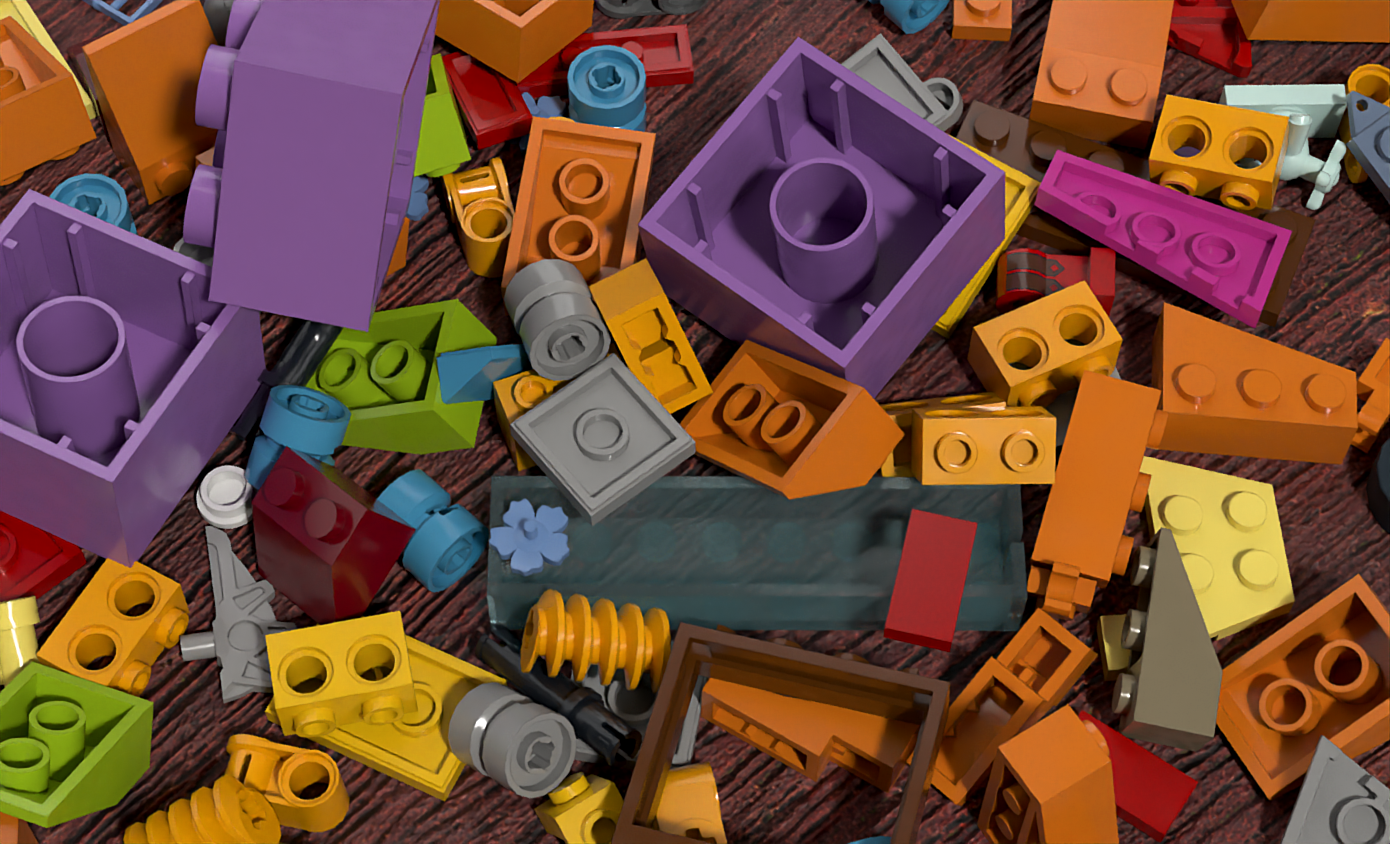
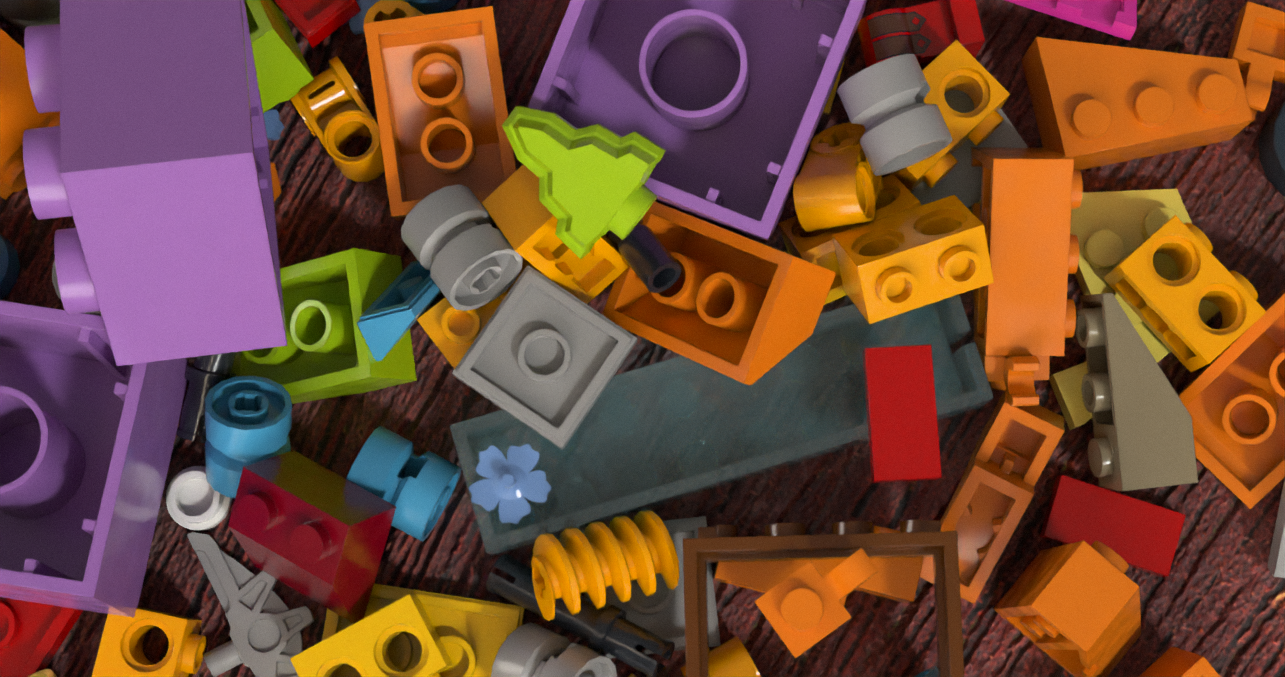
camera: 15 degrees left, 20 degrees up
(692, 264) = (585, 174): none -> lime rock
(720, 362) = (648, 258): none -> black piece
(785, 709) = (809, 606): none -> orange plate
(930, 370) = (836, 181): none -> light orange piece
(1003, 313) = (893, 111): none -> light grey wheel
(1233, 566) = (1172, 306): none -> light orange brick

